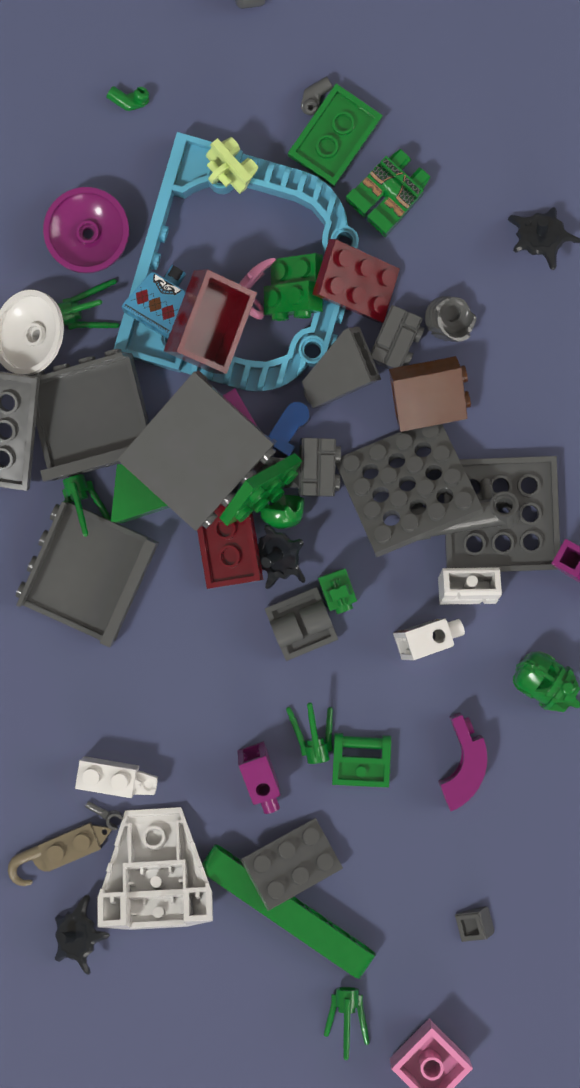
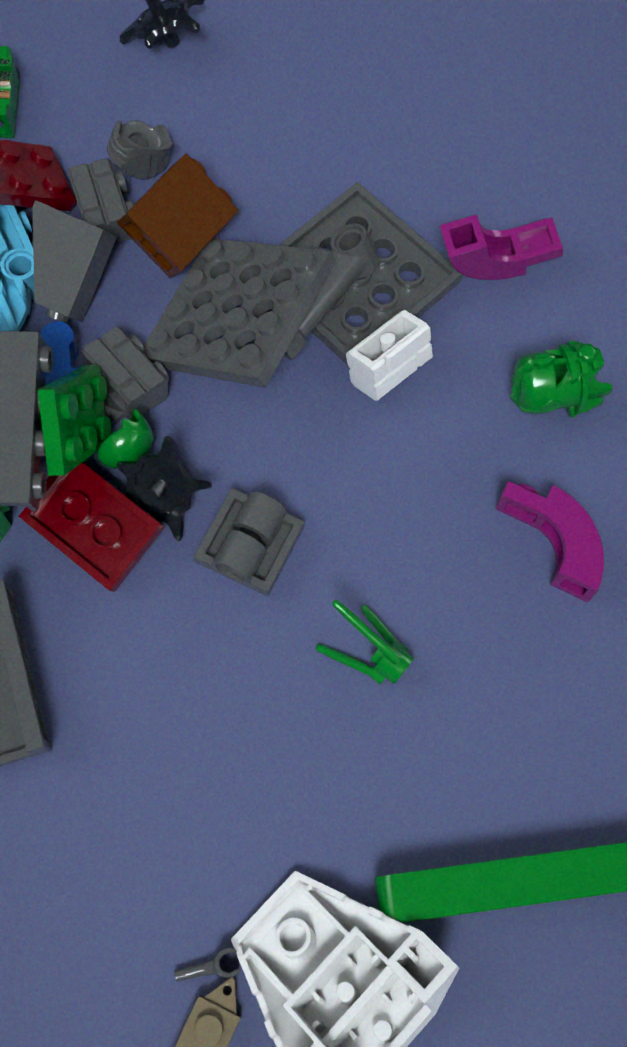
camera: 45 degrees left, 20 degrees down
(114, 778) = (180, 906): white hinge -> none
(258, 769) = (339, 737): magenta torso -> none
(291, 864) = (484, 816): dark grey plate -> none
(338, 591) = (255, 462): green hinge -> none
(360, 769) = (459, 639): green plate -> none
(419, 641) = (400, 431): white torso -> none

